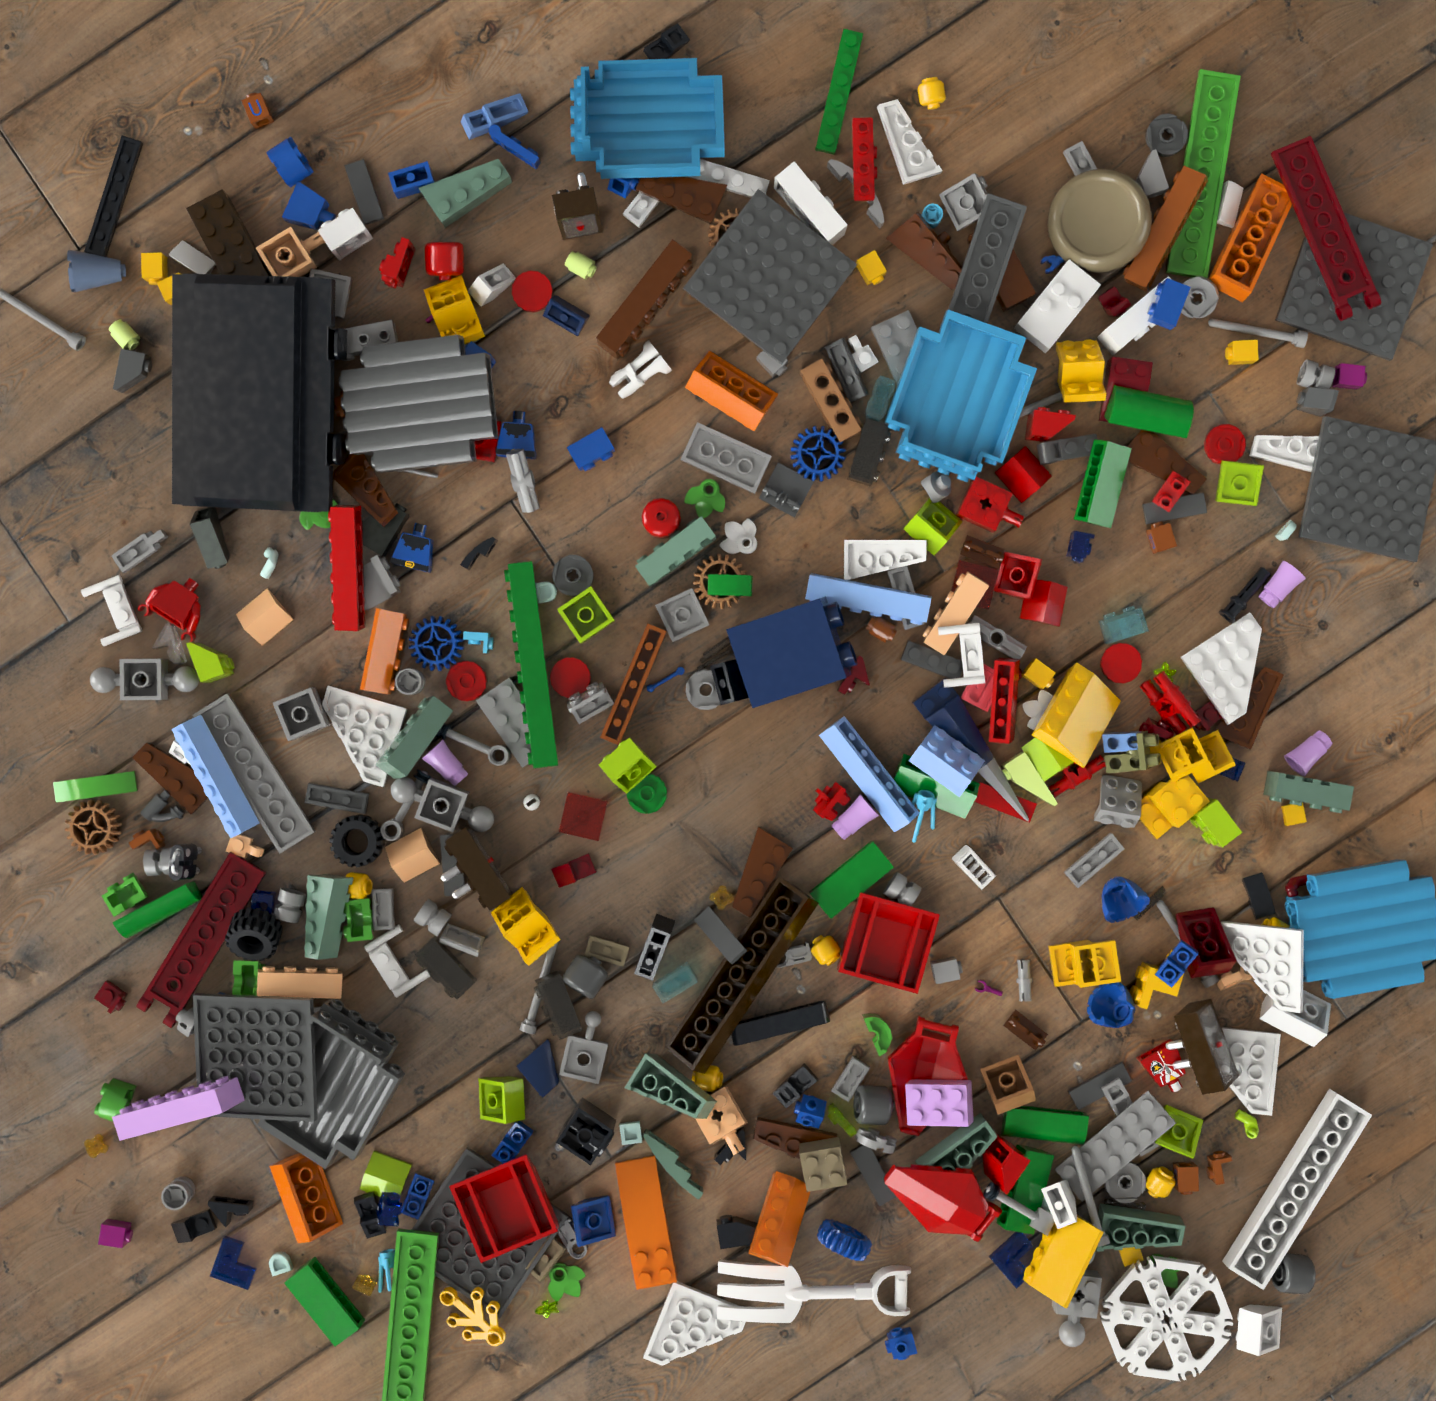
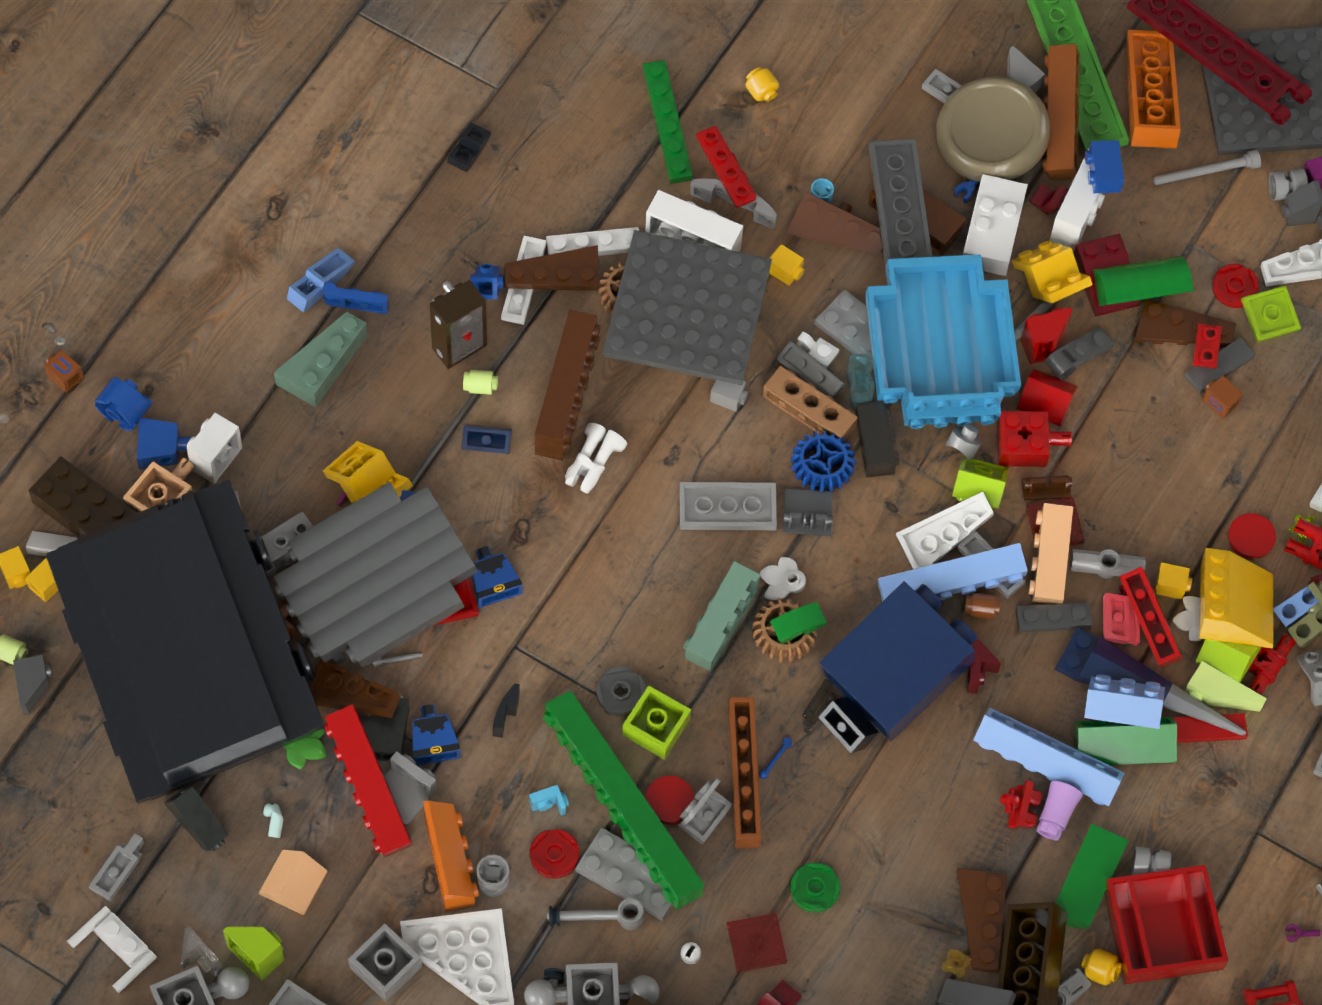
camera: 30 degrees left, 25 degrees down
(176, 605) = (186, 905): red torso -> none
(364, 192) = (210, 401): dark grey tile -> none
(395, 269) = (282, 457): red plate -> none
(410, 179) = (259, 370): blue brick -> none
(414, 738) = (526, 933): sand green wedge -> none
(436, 652) = (511, 819): blue gear -> none
(444, 259) = (331, 431): red head -> none
(445, 763) = (573, 947): lavender plant -> none
(491, 284) = (393, 437): white slope -> none
(522, 480) = (521, 613): light grey piece -> none
(532, 291) = (439, 429): red tile -> none
(545, 592) = (601, 720): light aqua tile -> none
(591, 449) = (579, 556): blue brick -> none
(627, 765) = (781, 857): lime brick -> none
(647, 118) = (485, 214): dark azure panel -> none
(654, 524) = (689, 590): red head -> none
(682, 615) = (761, 679): light grey plate -> none
(693, 690) = (821, 763): light grey tile -> none
(705, 501) = (724, 557): bright green plate -> none
(731, 390) = (700, 439): orange slope -> none
(909, 152) = (766, 146): white wing -> none
(924, 800) = (1124, 756): medium azure plant -> none
(946, 970) = (1244, 930): light grey brick -> none
(964, 858) = (1211, 816): white slope -> none
(965, 200) = (849, 166): light grey plate -> none
(971, 654) = (1090, 585): white plate -> none
(1017, 576) = (1097, 492): red slope -> none
(1046, 603) = (1137, 509): red slope -> none
(1079, 546) = (1143, 438): clear blue brick -> none
(1102, 483) = (1133, 369): brick -> none
(1123, 625) = (1232, 496): clear light blue brick -> none
(1174, 127) = (1011, 21): dark grey plate -> none
(1209, 296) = (1143, 158): light grey plate -> none
(1229, 204) = (1112, 68): white slope -> none
(1242, 352) = (1203, 193): yellow brick -> none

